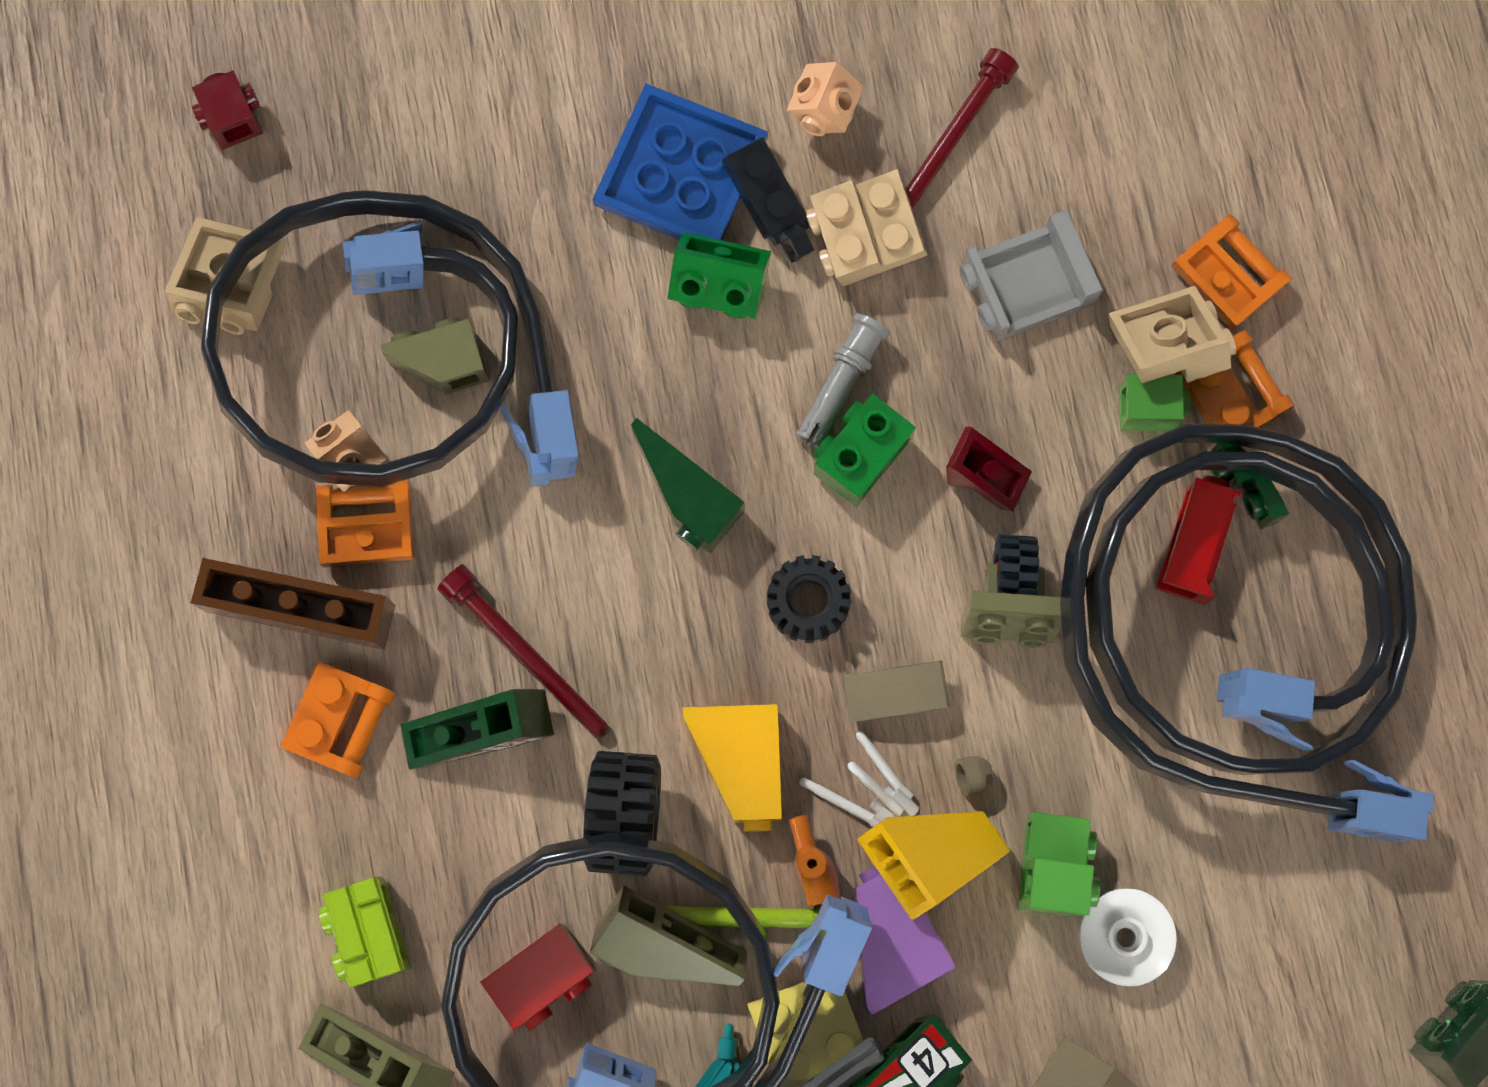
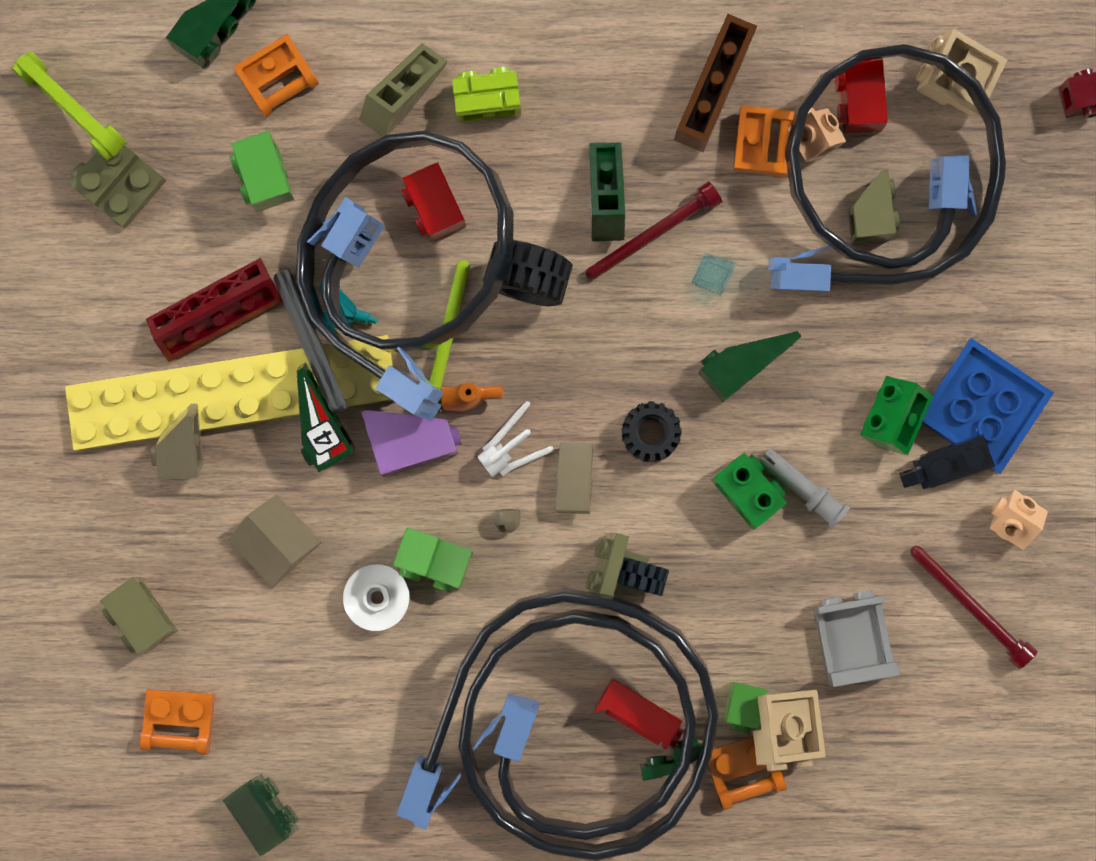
camera: 100 degrees right, 5 degrees up
(284, 397) = (862, 98): none -> red brick
(324, 714) = (638, 94): orange plate -> none
(567, 556) = (713, 273): none -> clear light blue slope
(661, 944) = (438, 284): olive slope -> none
(742, 759) = (548, 363): yellow slope -> none
(865, 227) = (914, 528): tan plate -> none
(931, 855) = (456, 475): yellow slope -> none
(987, 470) = (717, 575): dark red slope -> none
(1223, 280) = (827, 780): orange plate -> none

